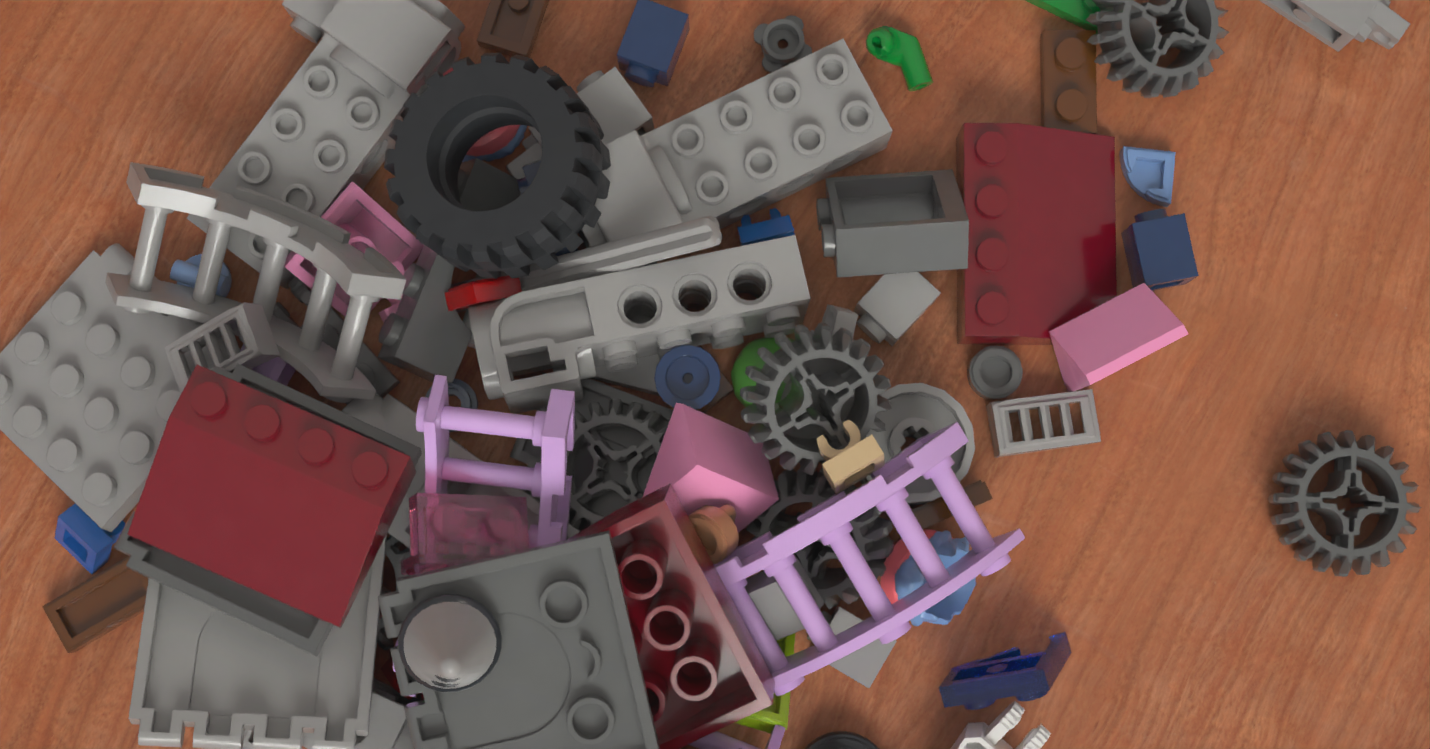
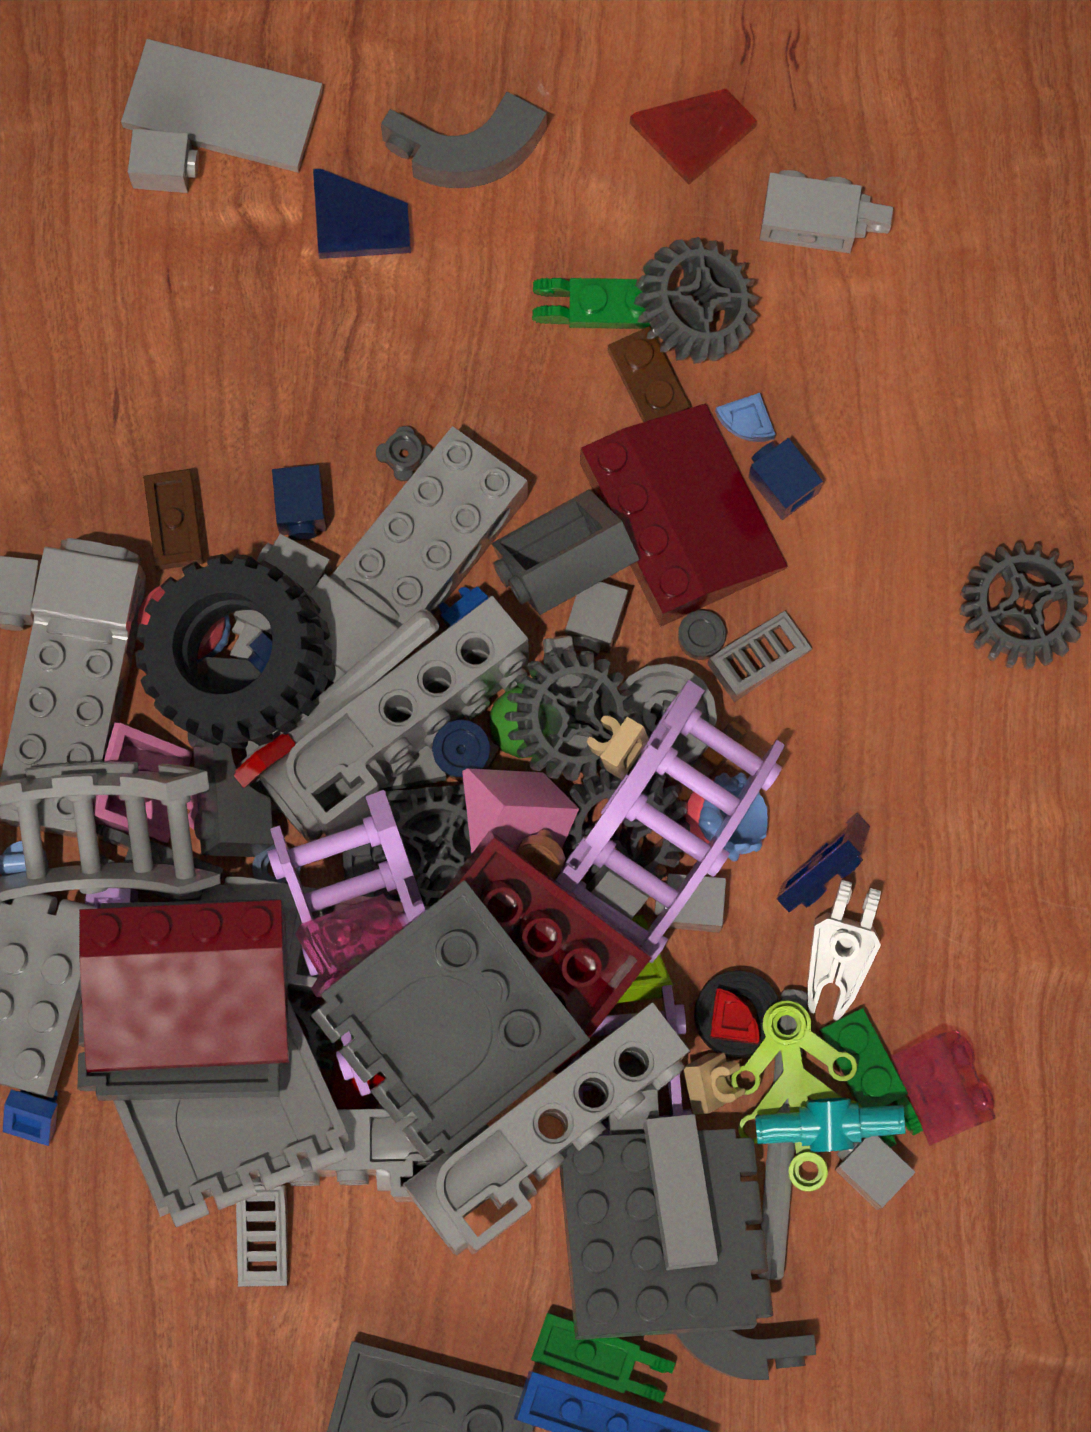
camera: 30 degrees left, 5 degrees down
(97, 605) = (70, 1163): reddish brown tile -> none
(253, 329) = (100, 874): light grey slope -> none
(449, 642) = (383, 1021): light grey hat -> none
(902, 51) = (503, 413): green arm -> none
(1113, 336) = (780, 560): bright pink slope -> none

